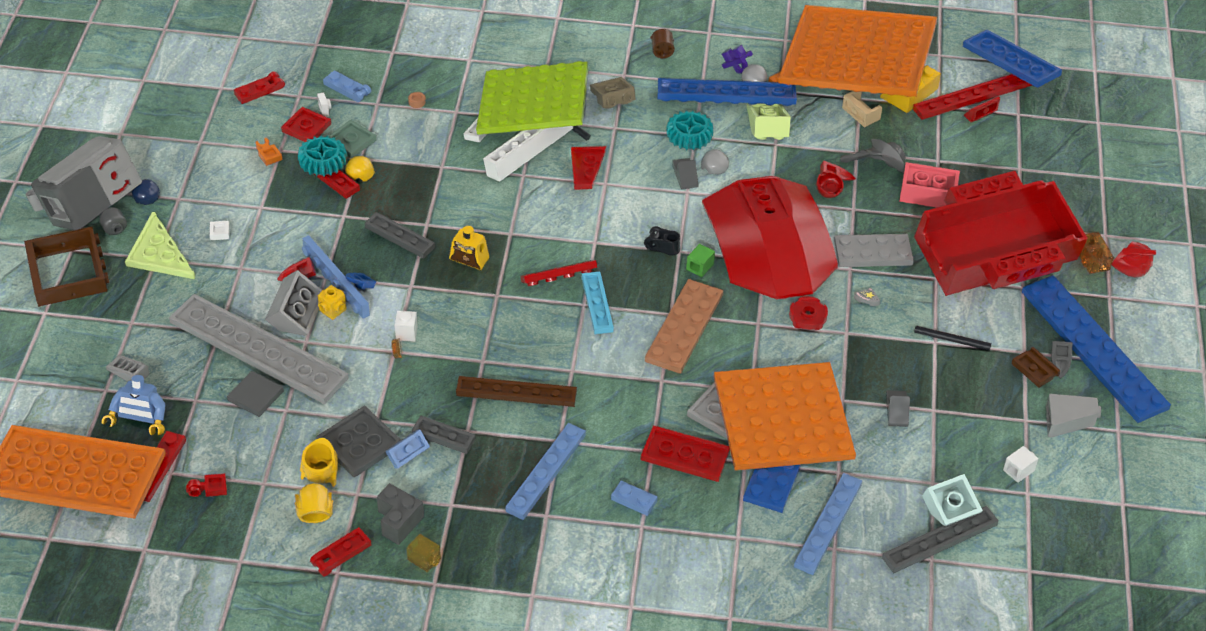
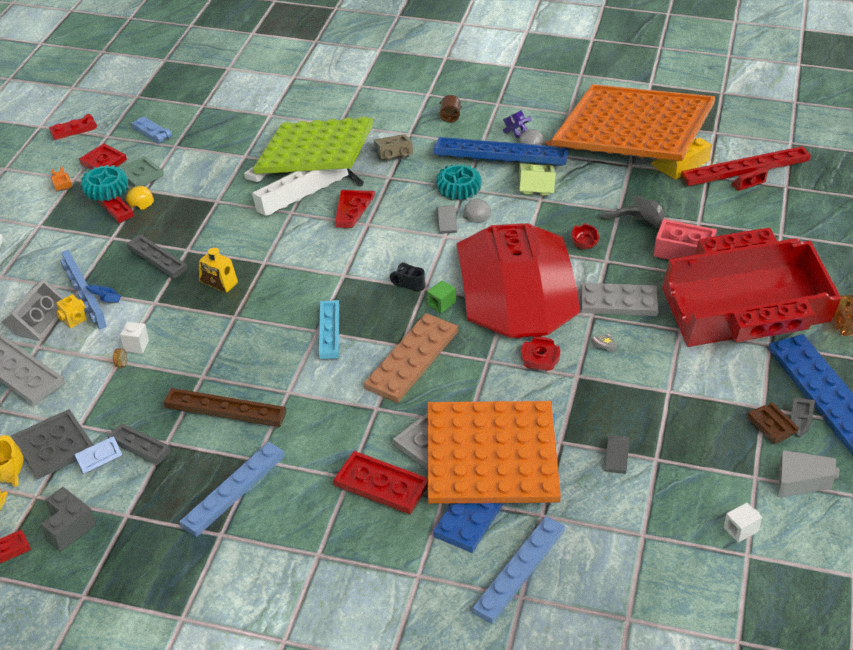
camera: 10 degrees right, 5 degrees down
(304, 266) = (56, 279): red plate -> none
(324, 104) = (124, 143): white plate -> none
(416, 100) = (211, 144): nougat tile -> none
(423, 553) = (79, 562): clear yellow brick -> none
(551, 274) = (291, 300): red plate -> none
(634, 498) = (317, 524): medium blue plate -> none
(844, 174) = (602, 229): red plate -> none
(859, 110) = (627, 174): tan panel -> none
(938, 540) = (639, 597): dark grey plate -> none
(952, 500) = (658, 555): light aqua slope -> none
(953, 338) = (688, 388): black bar -> none
(1012, 58) = (786, 136): blue plate -> none

